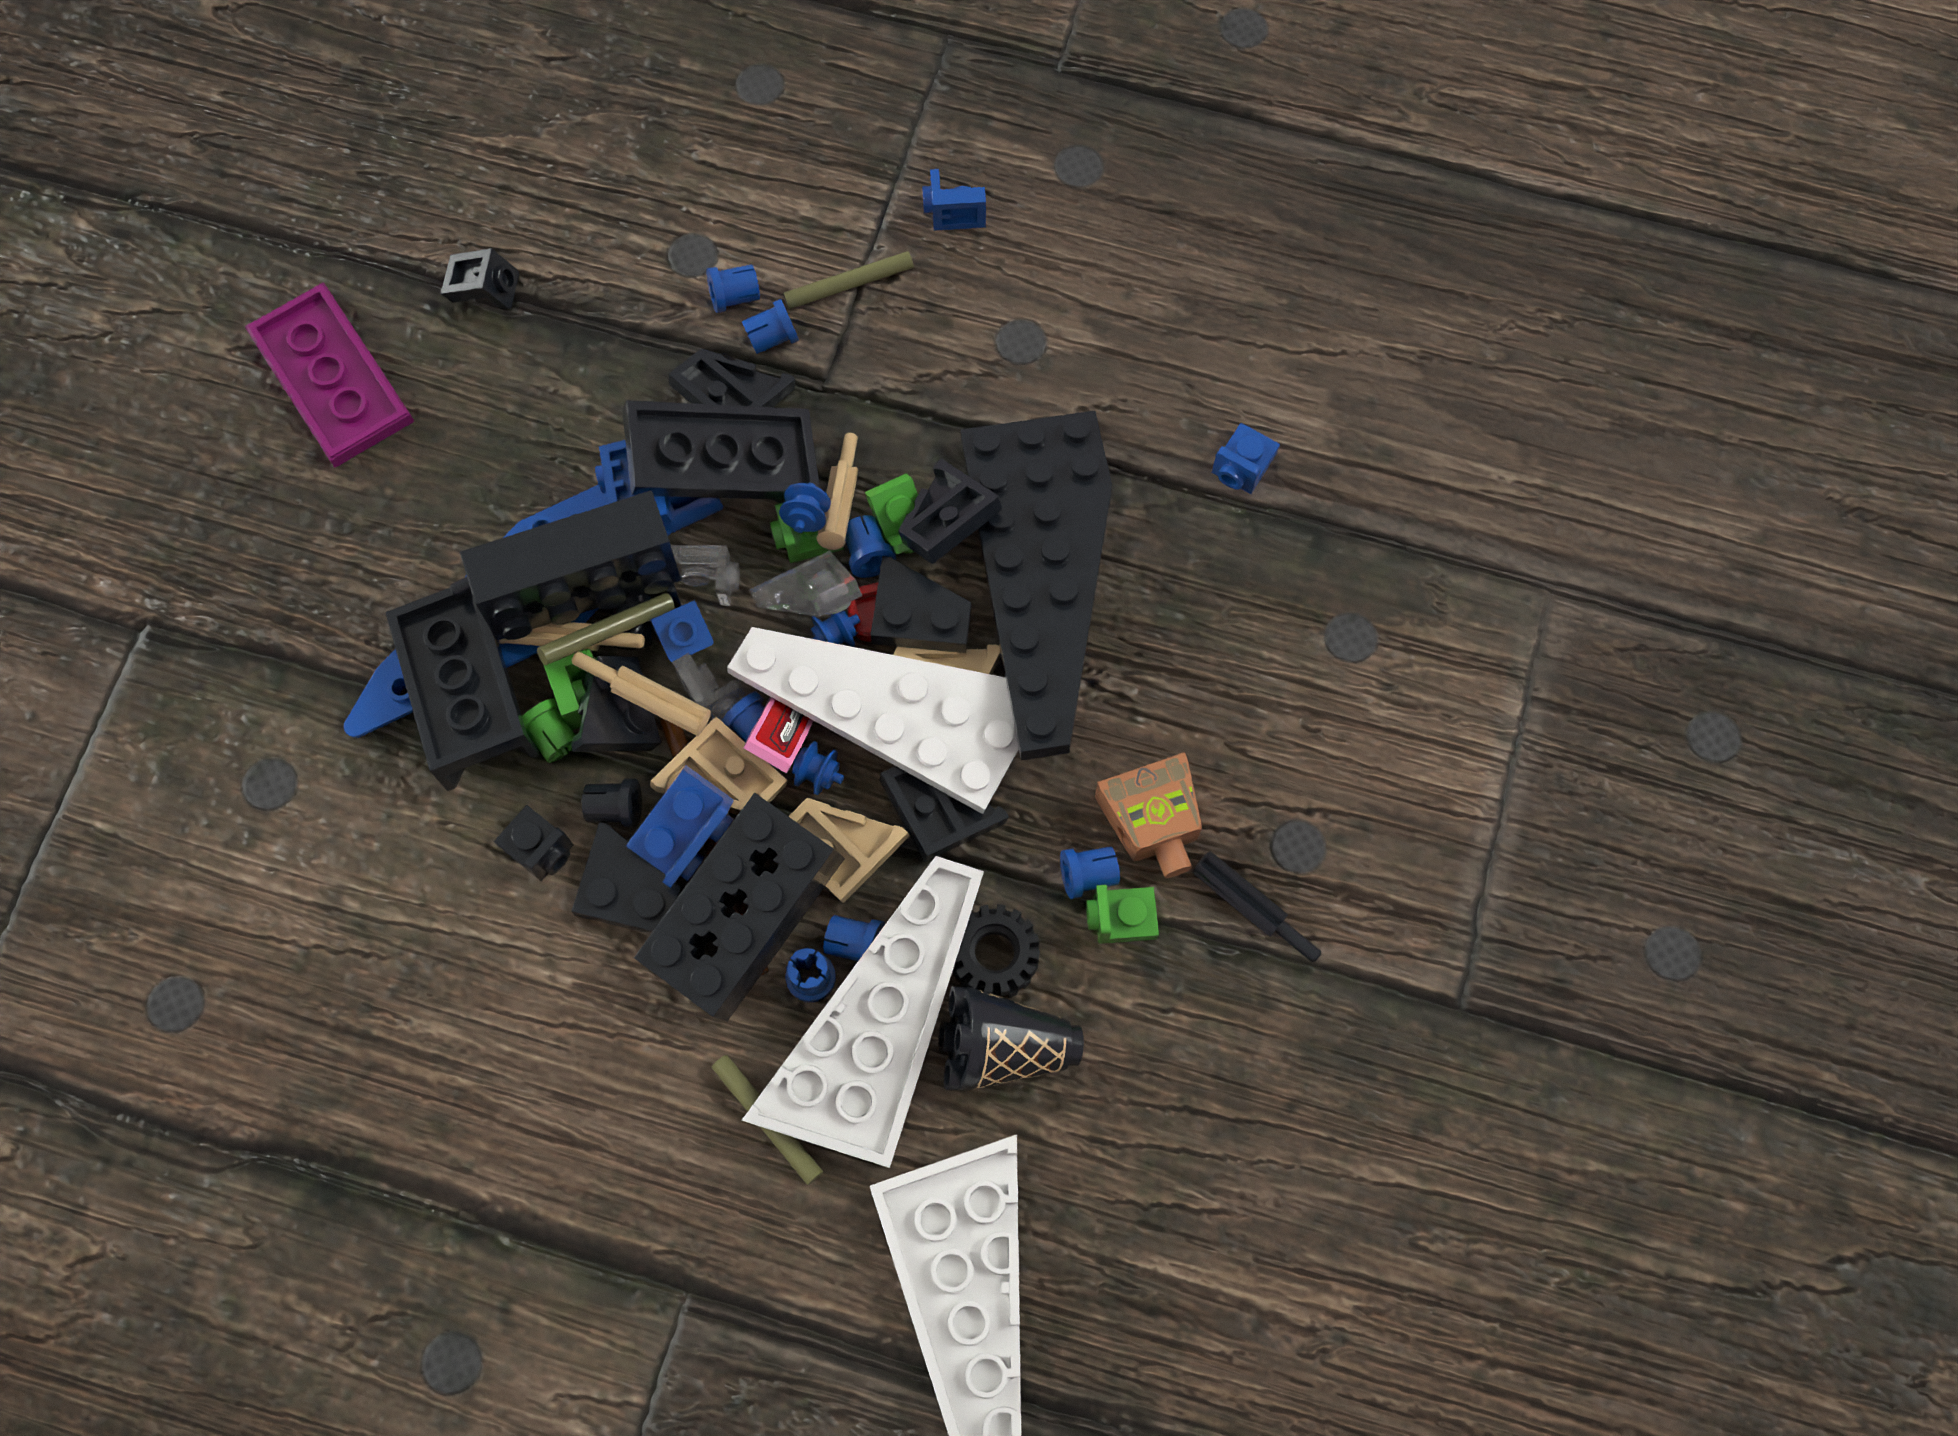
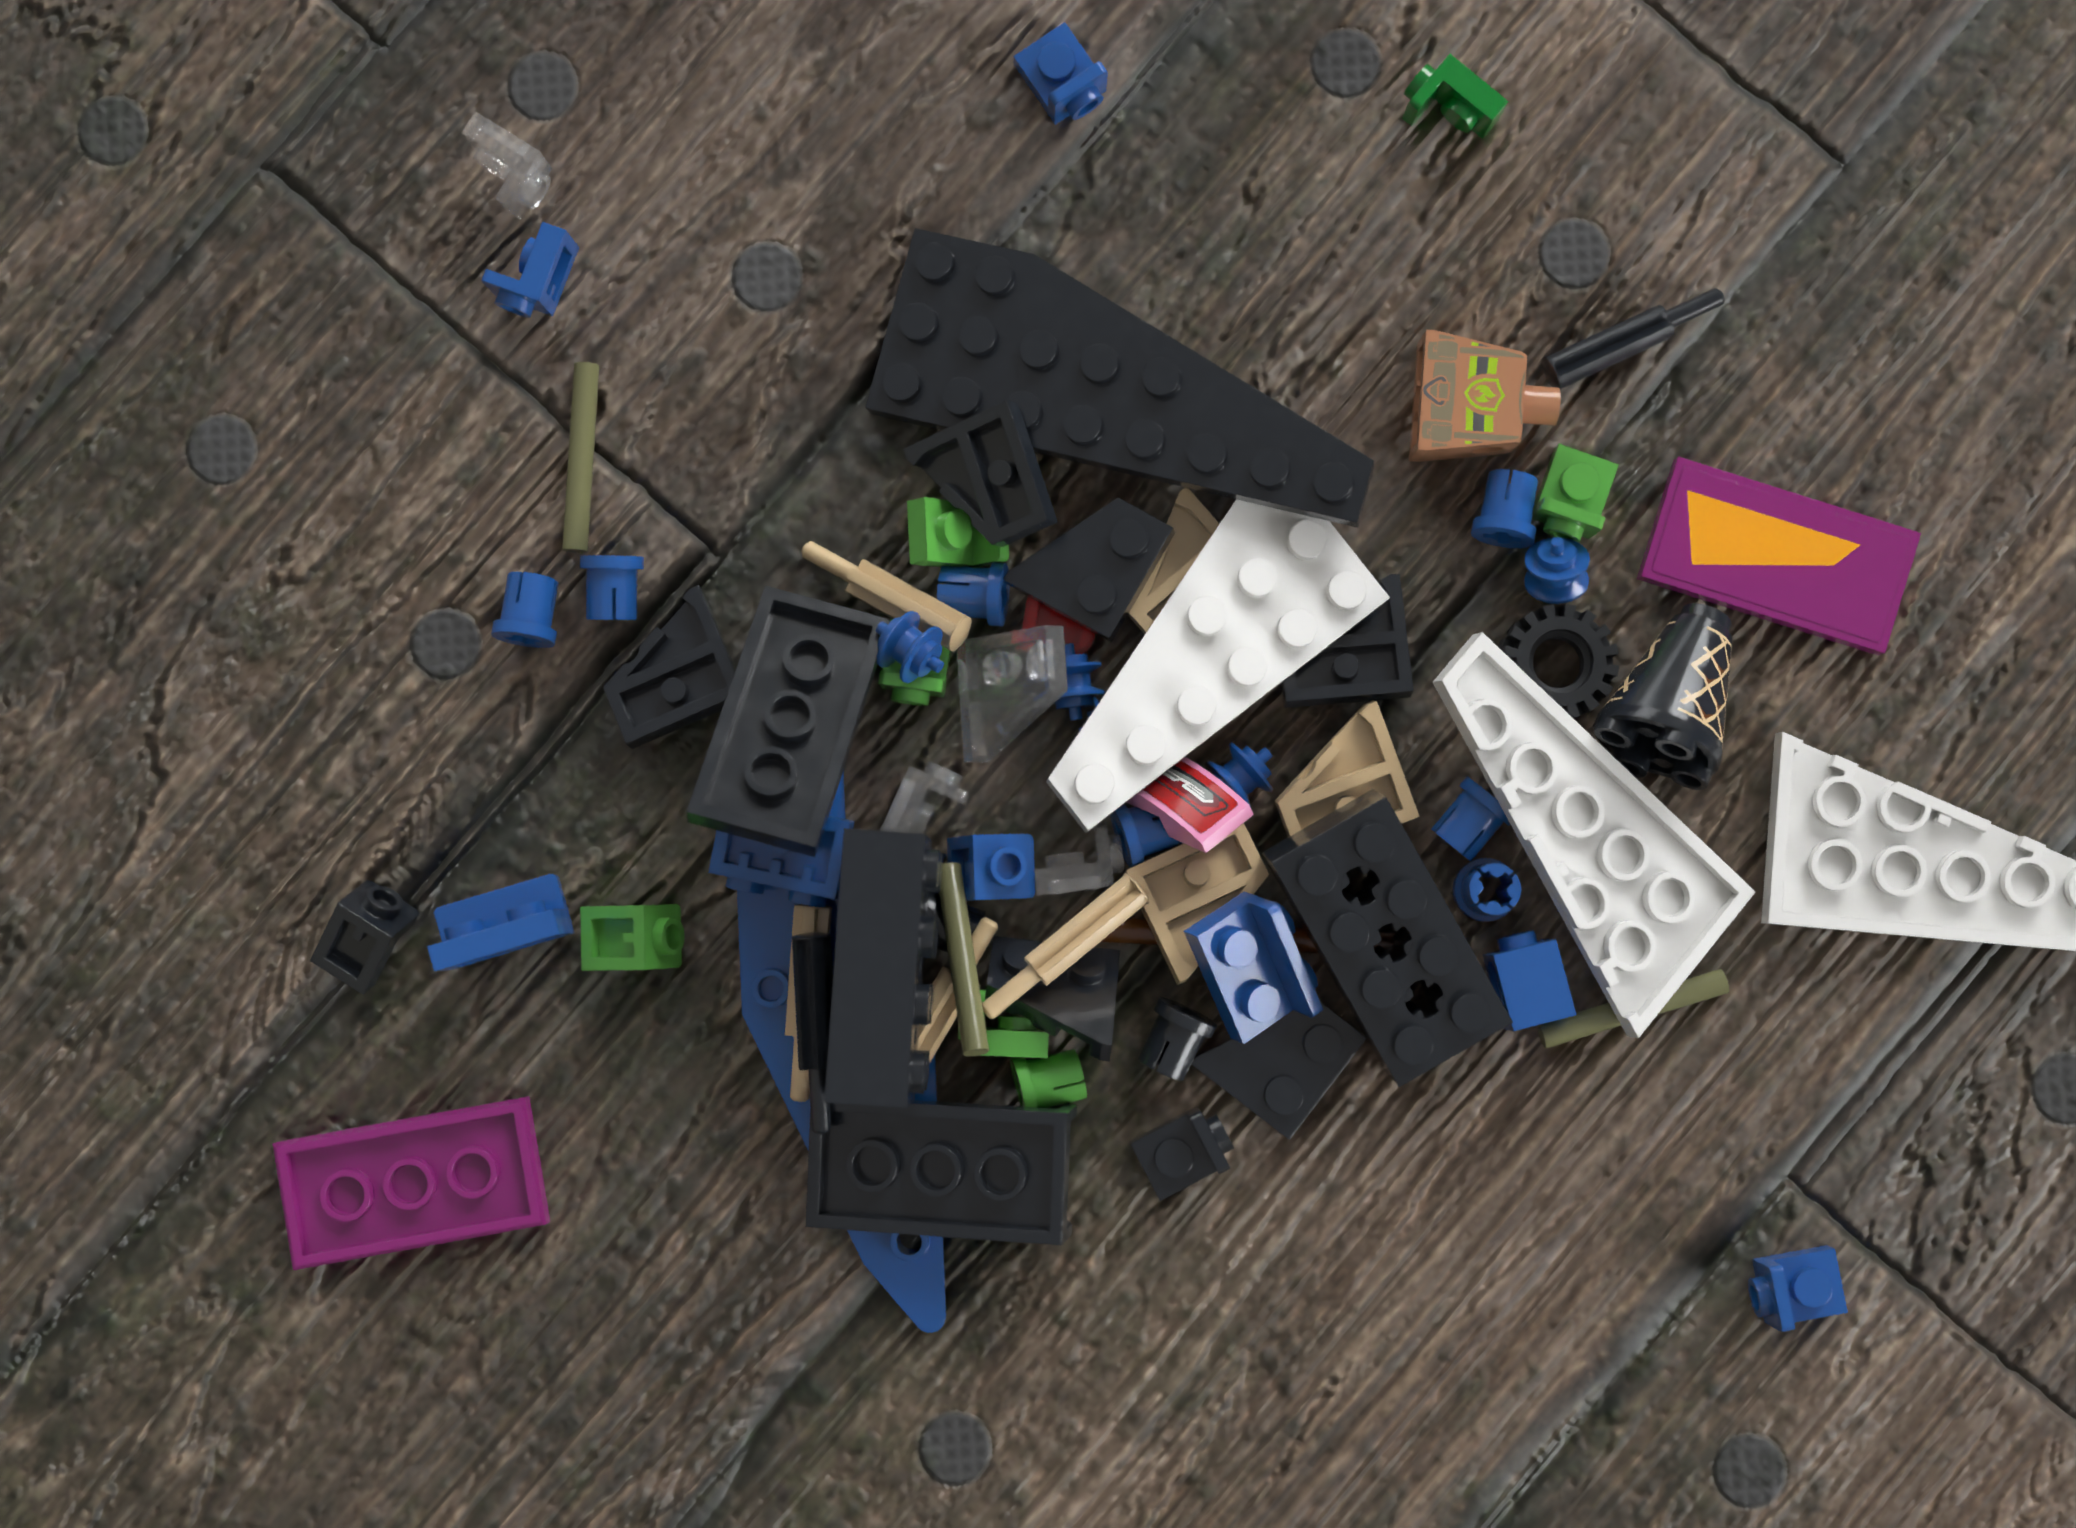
camera: 60 degrees left, 15 degrees up
(517, 351) = (500, 922): none -> blue bracket
(543, 435) = (631, 937): none -> bright green bracket
(603, 1332) = (1797, 1287): none -> blue bracket
(753, 1028) = (1529, 980): none -> blue brick
(1014, 170) = (505, 153): none -> clear bracket
(1060, 922) = (1556, 570): none -> blue wheel
(1148, 1083) = (1779, 556): none -> magenta tile
(1363, 708) = (1464, 97): none -> green bracket

